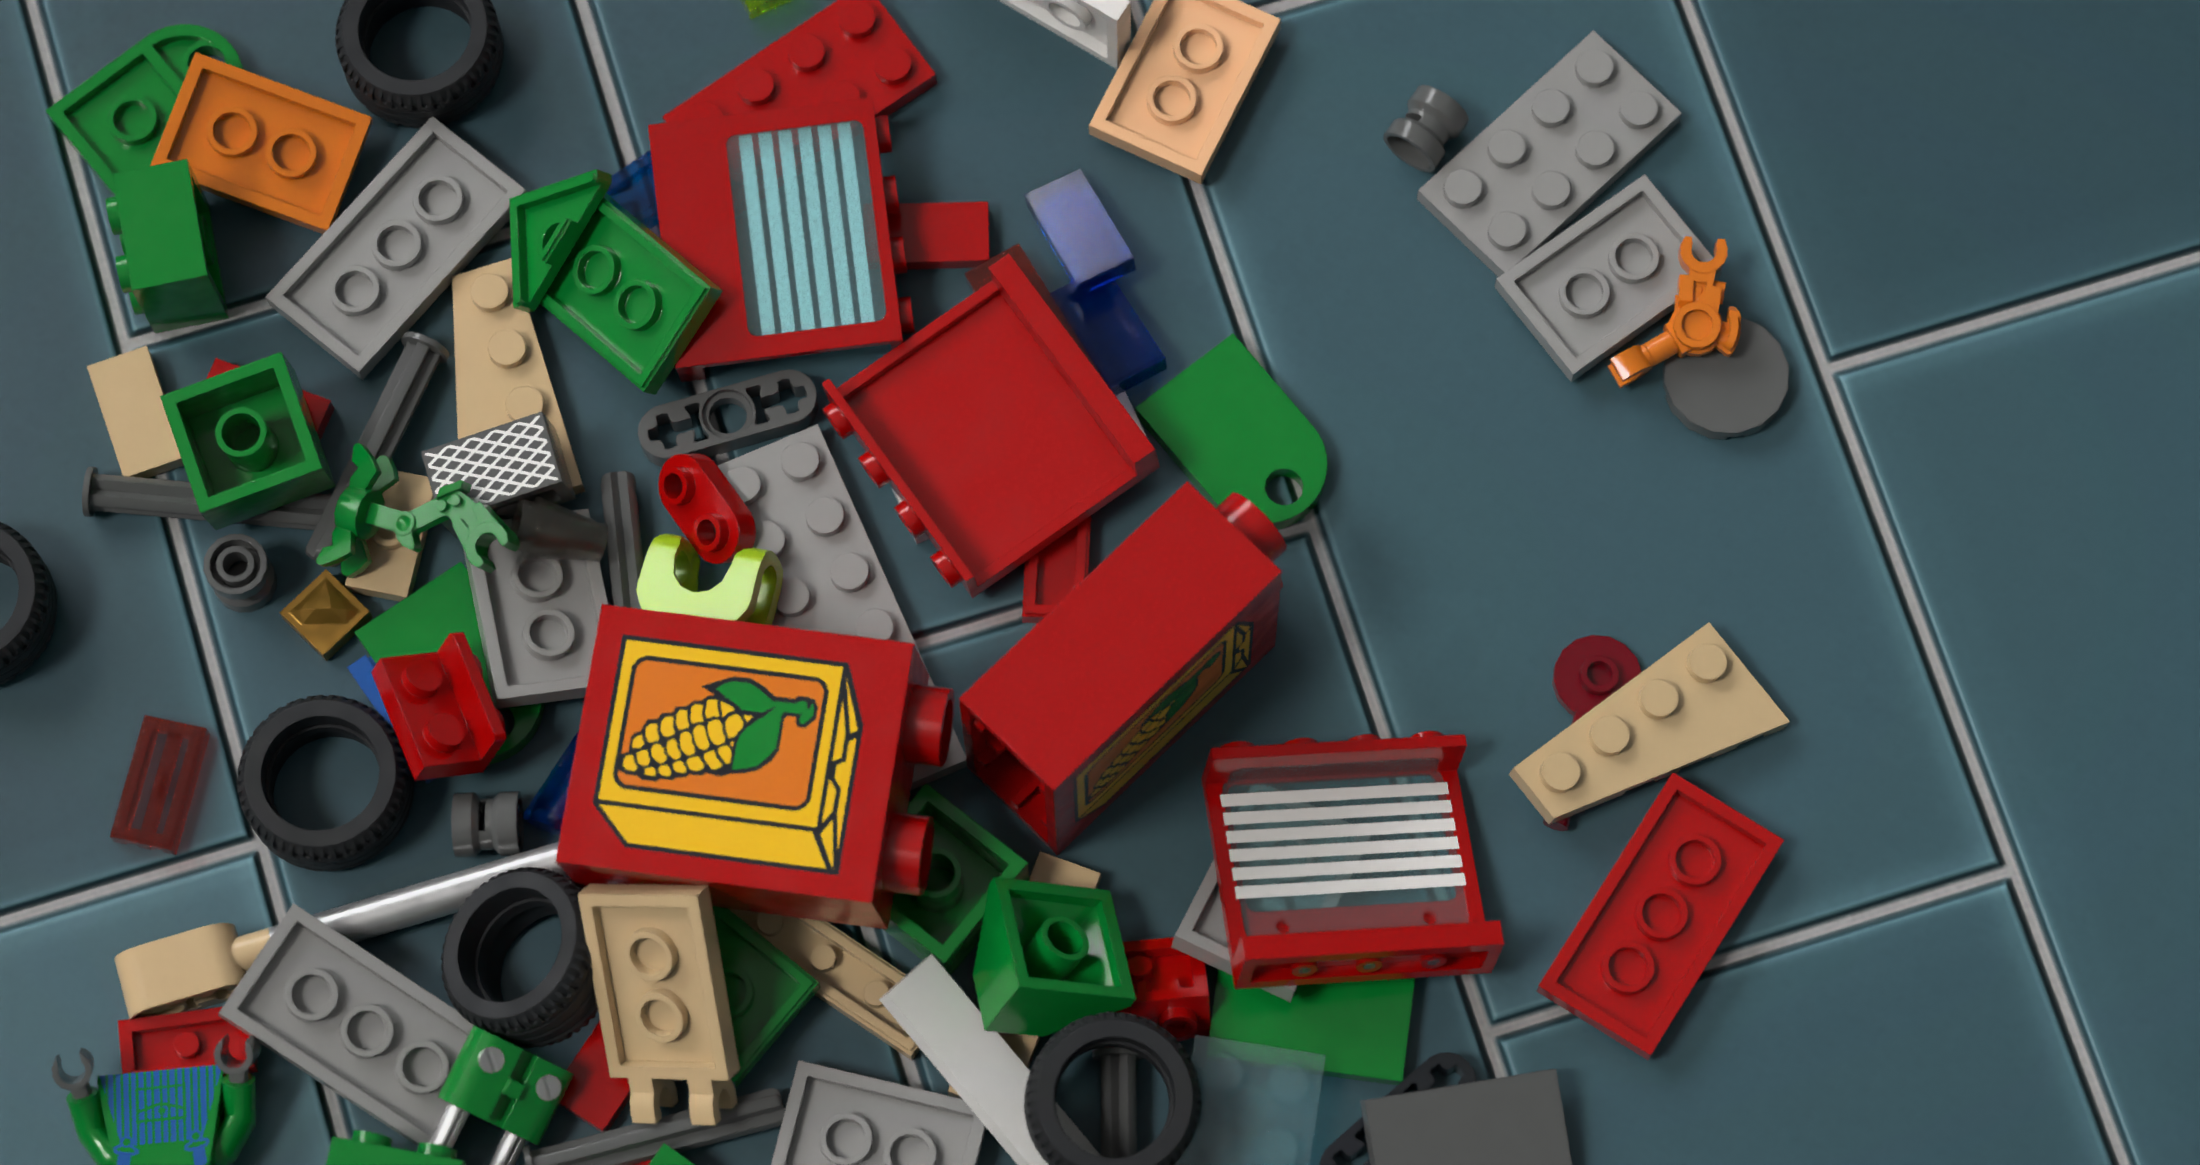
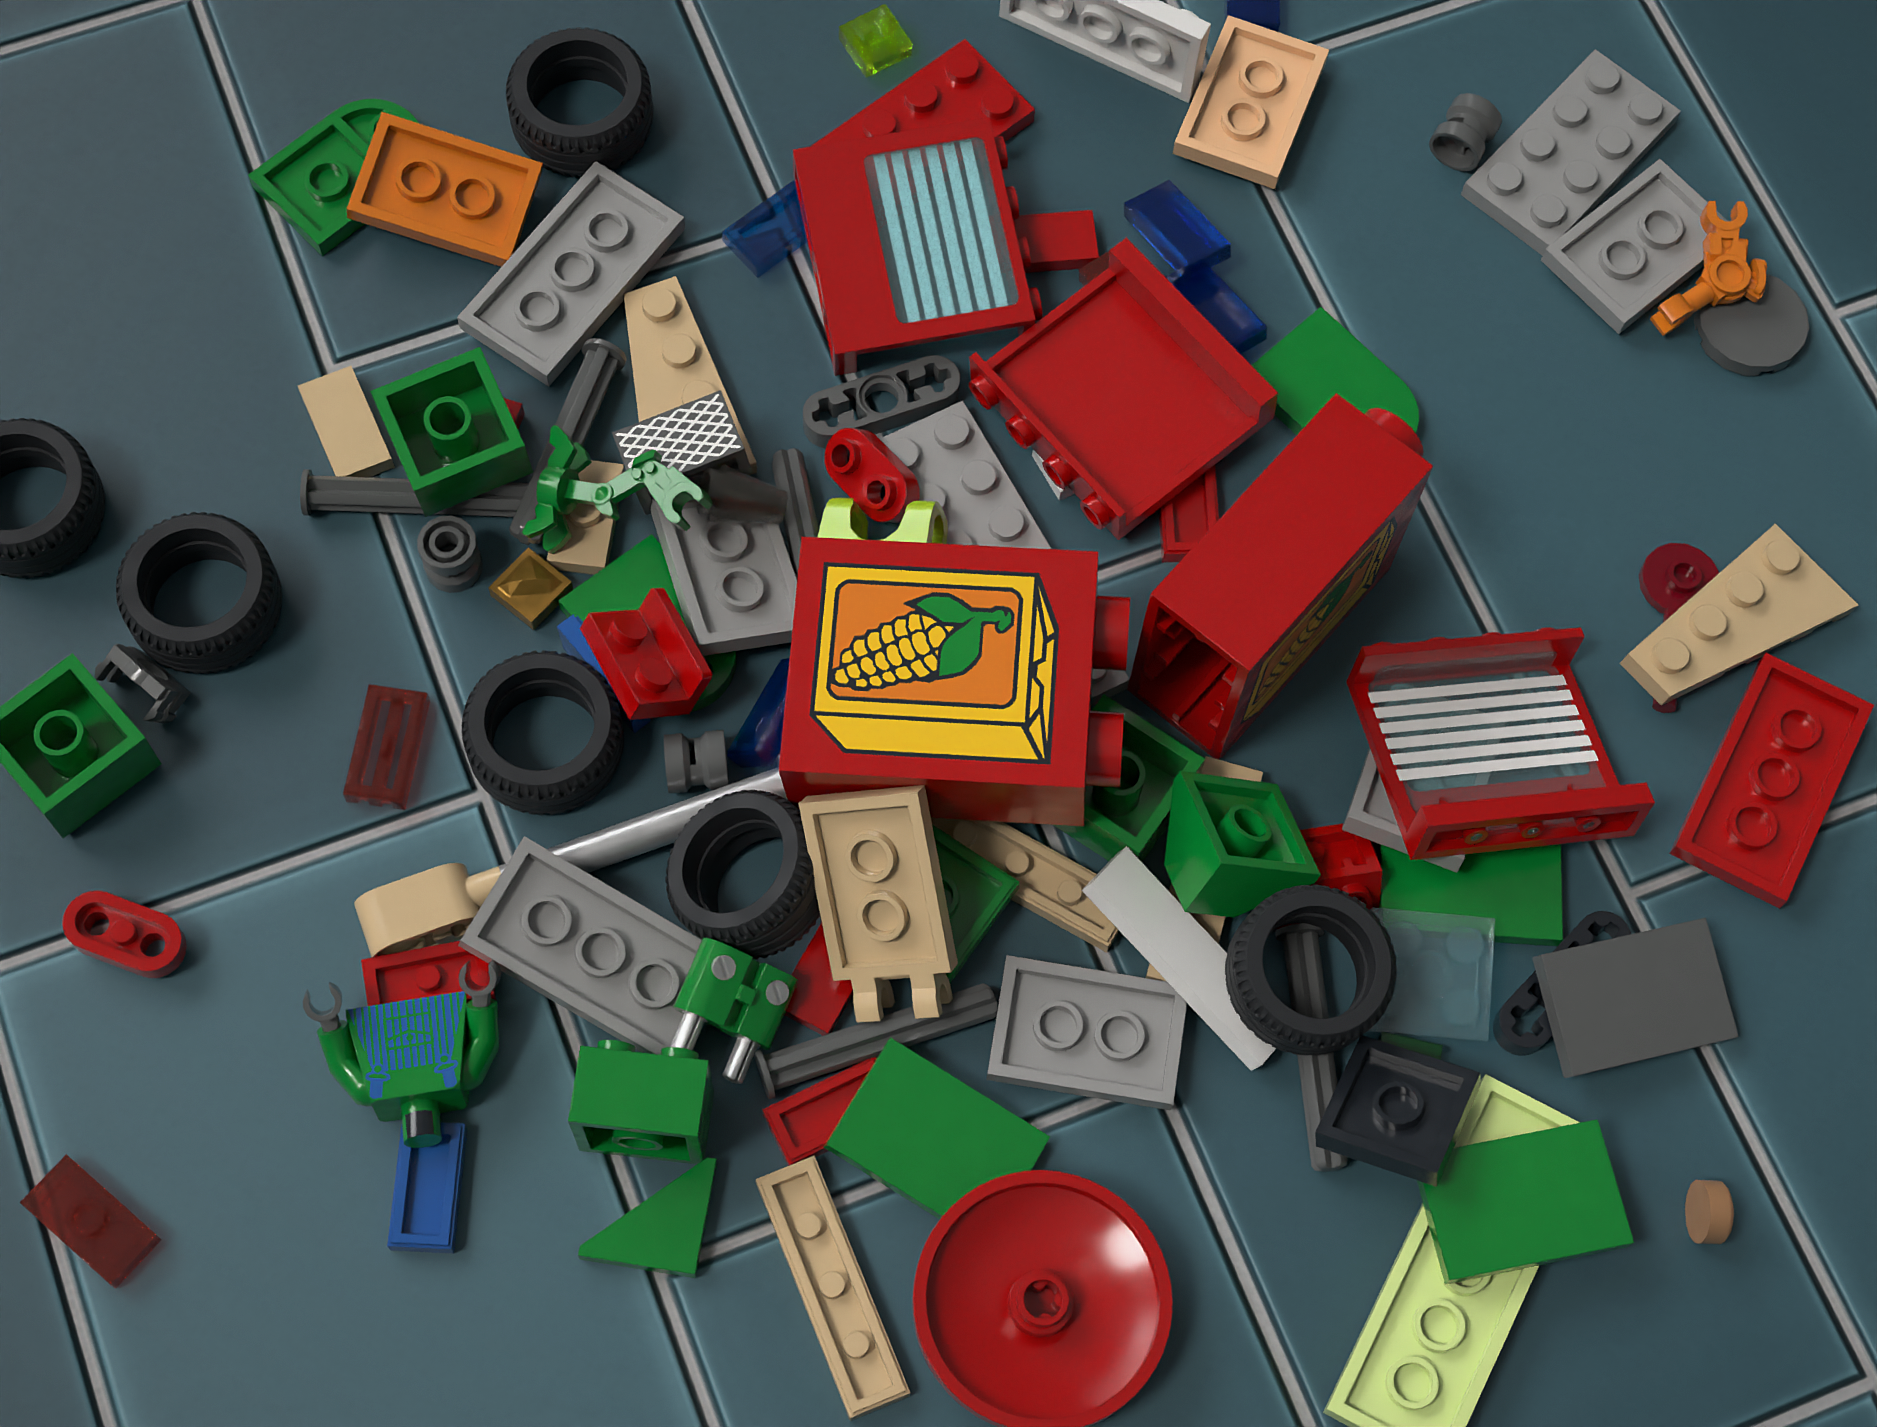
camera: 10 degrees left, 5 degrees down
(167, 246) = (364, 275): green brick -> none
(546, 229) = (707, 244): green tile -> none
(630, 296) = (780, 291): green tile -> none

